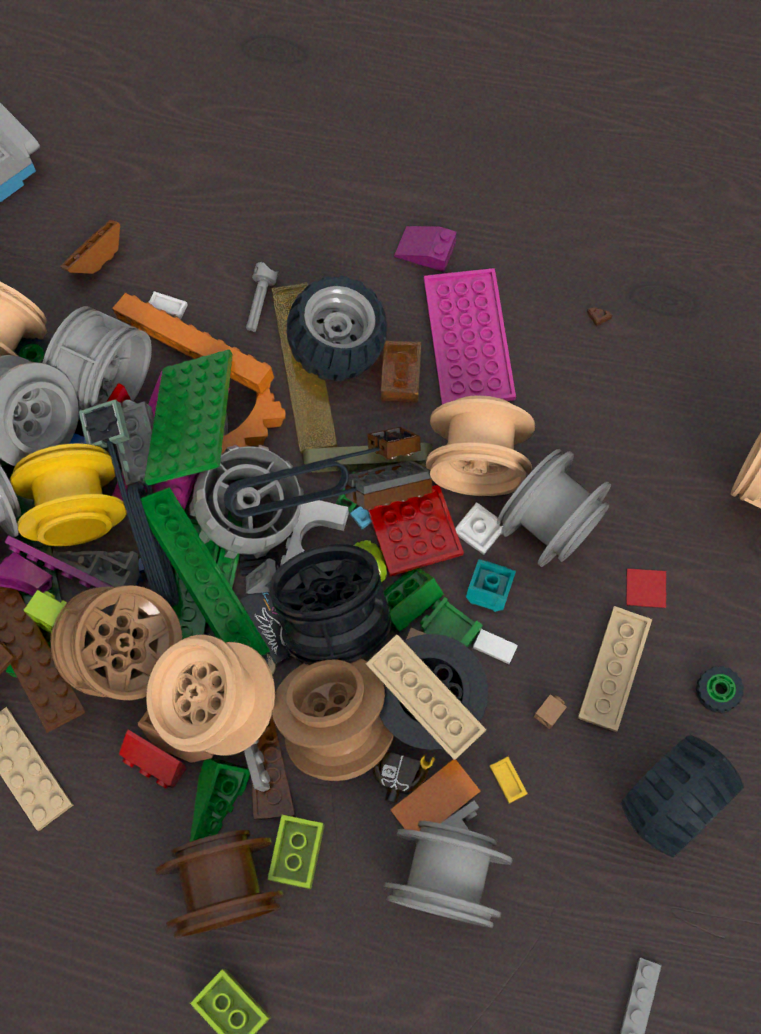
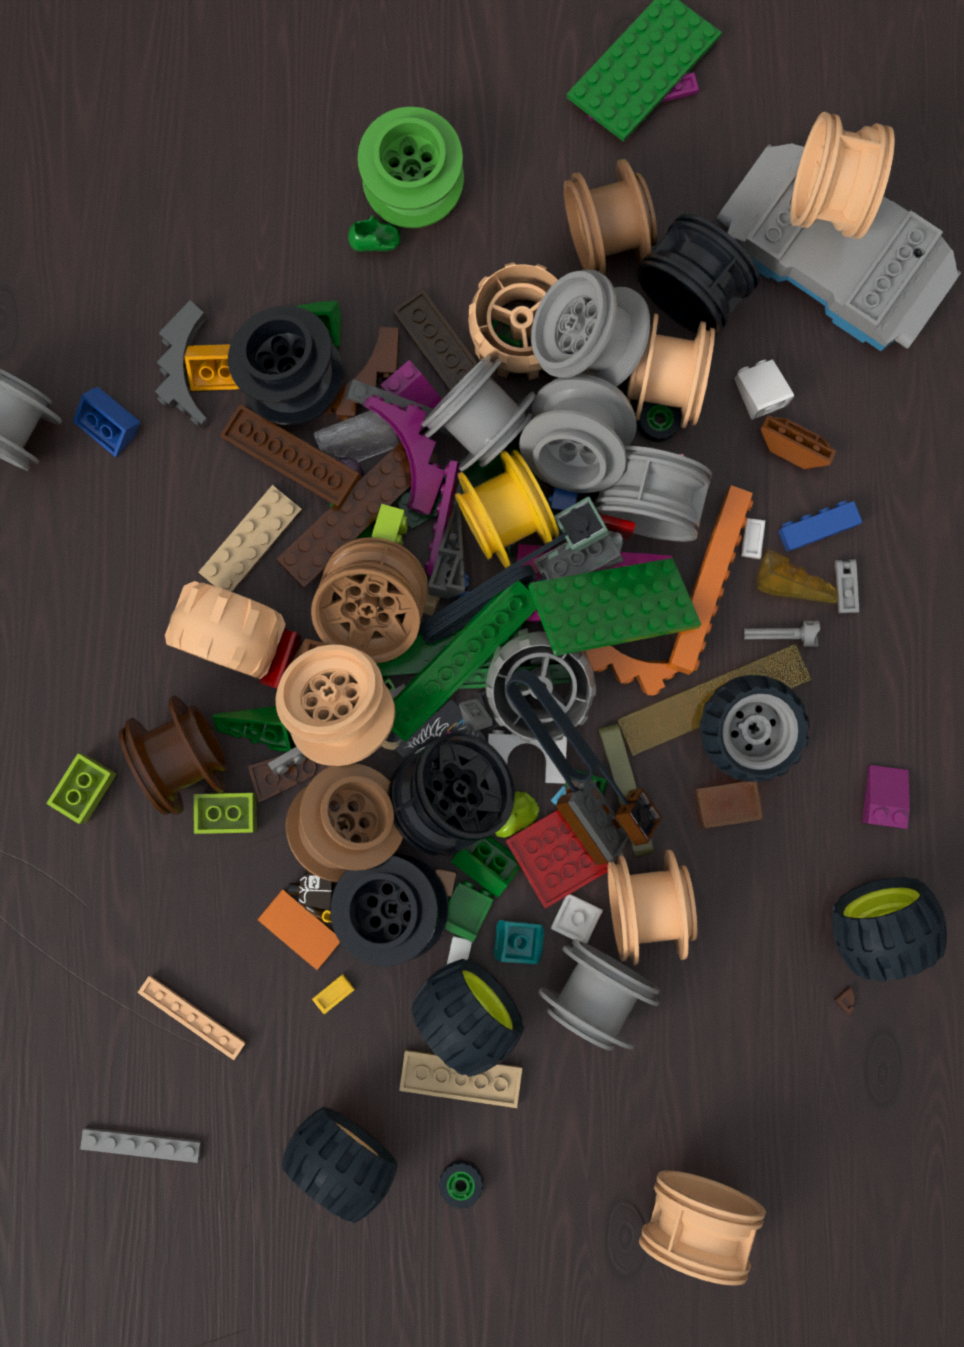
camera: 85 degrees right, 15 degrees up
(35, 266) = (763, 388): none -> white slope
(101, 800) = (225, 629): none -> light nougat wheel
(173, 249) = (820, 526): none -> blue brick
(211, 288) = (786, 580): none -> clear yellow wedge
(232, 239) = (847, 586): none -> light grey plate
(426, 697) = (371, 909): tan plate -> none
(448, 873) = (223, 959): light grey wheel -> none
(467, 813) = (282, 952): light grey slope -> none
(469, 335) = (787, 866): dark pink plate -> none
(504, 938) = (192, 1017): none -> light nougat plate
(540, 254) = (889, 928): none -> black wheel
(550, 711) = (404, 1023): medium nougat brick -> none
(554, 636) = (467, 1017): none -> black wheel
(646, 588) = (551, 1096): red piece -> none

